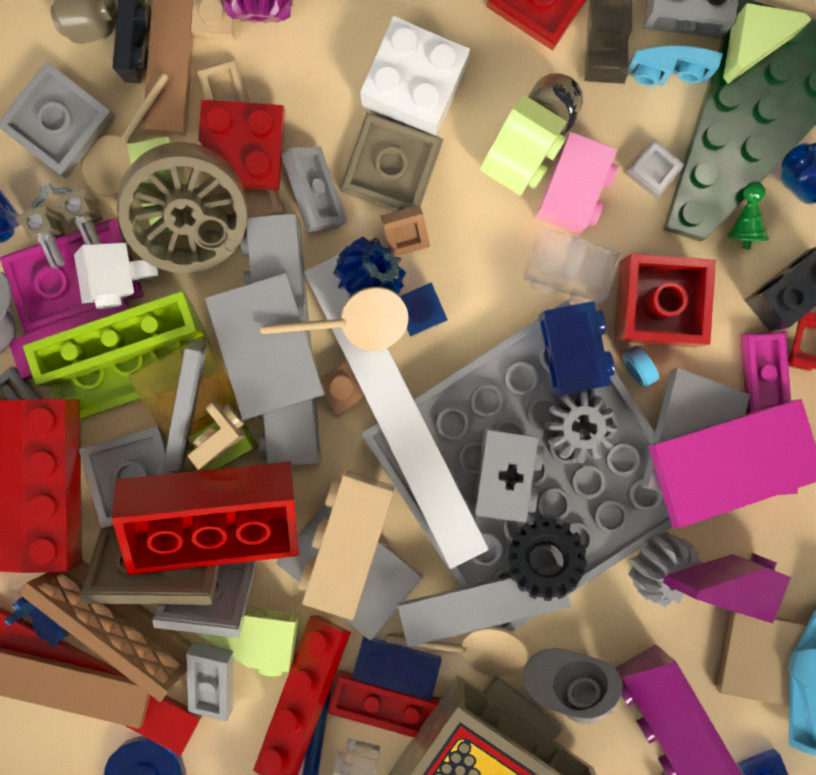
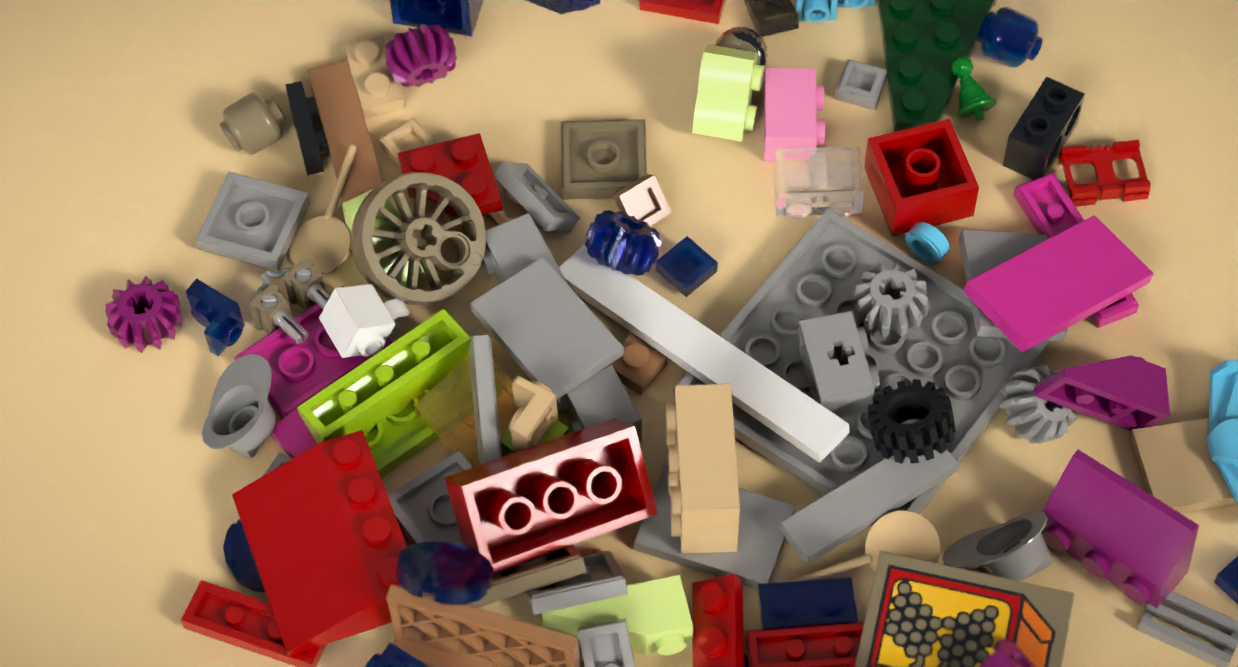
camera: 20 degrees left, 30 degrees down
(79, 580) = (444, 570): none -> clear blue tile
(369, 320) = (641, 271): piece -> none
(414, 77) = (597, 75): white brick -> none
(576, 348) = (851, 234): clear blue brick -> none

